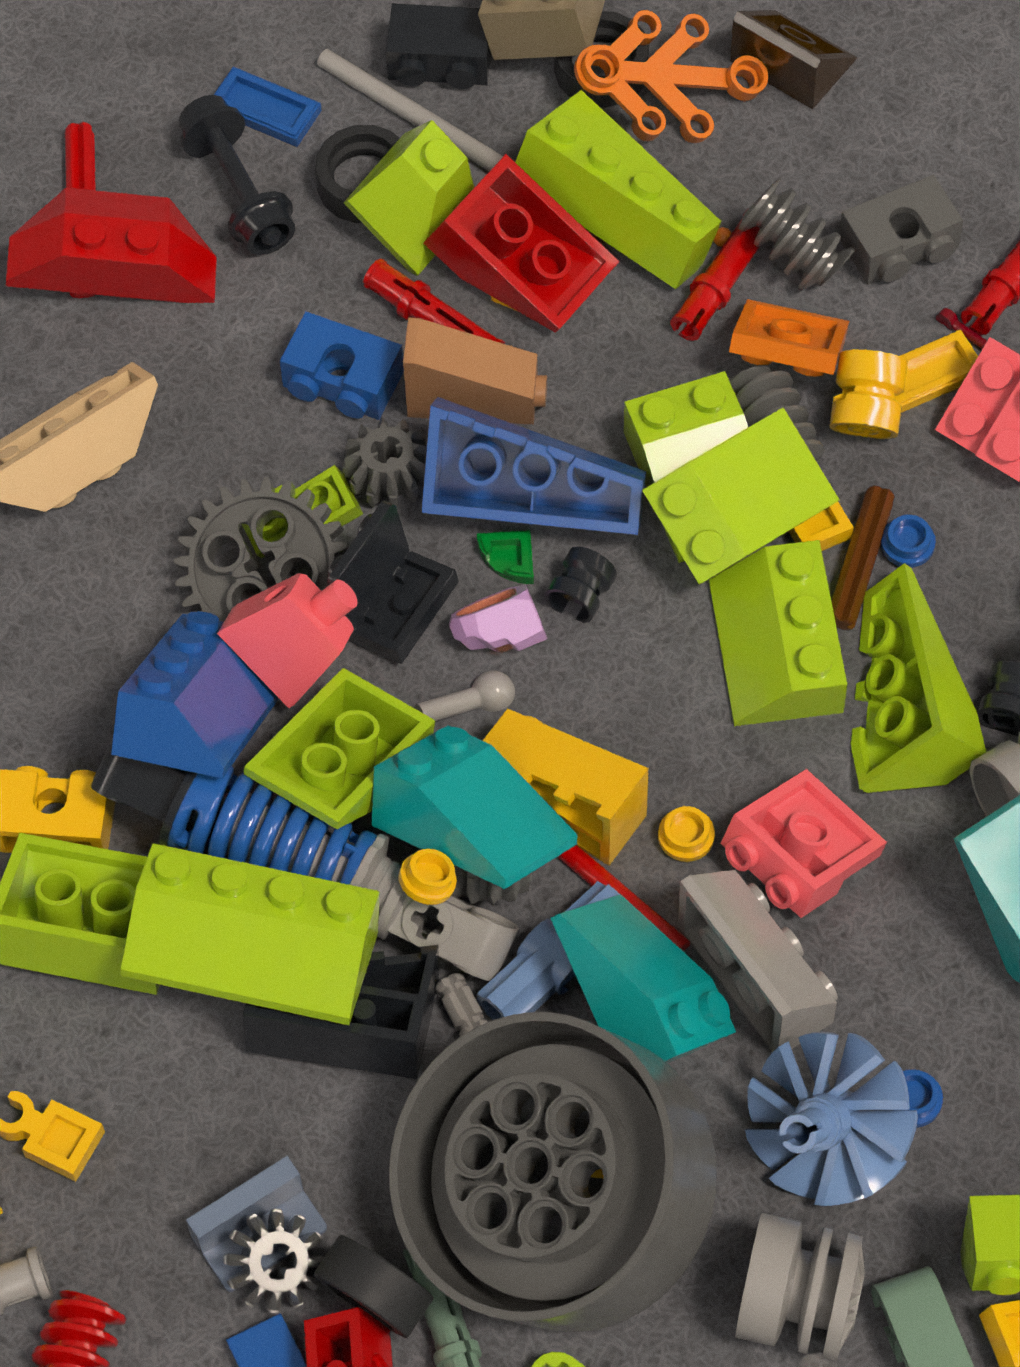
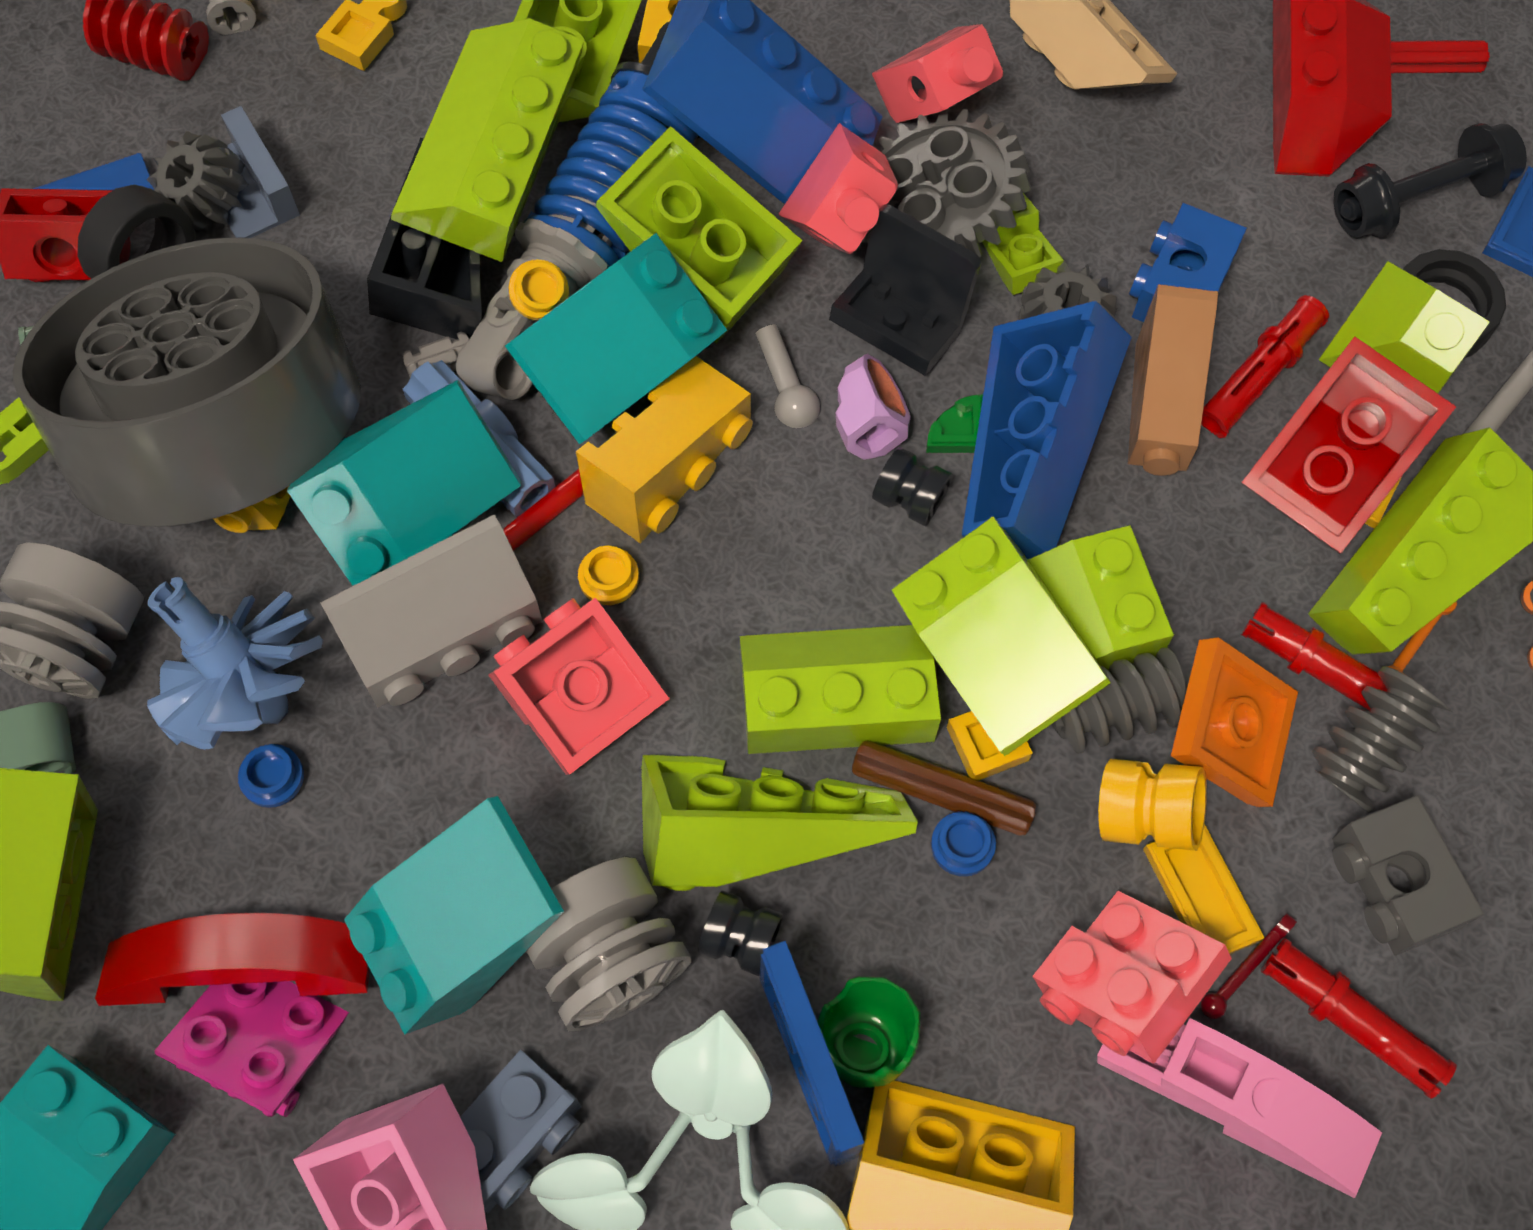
camera: 90 degrees right, 5 degrees up
(129, 562) = (949, 68): none -> coral torso

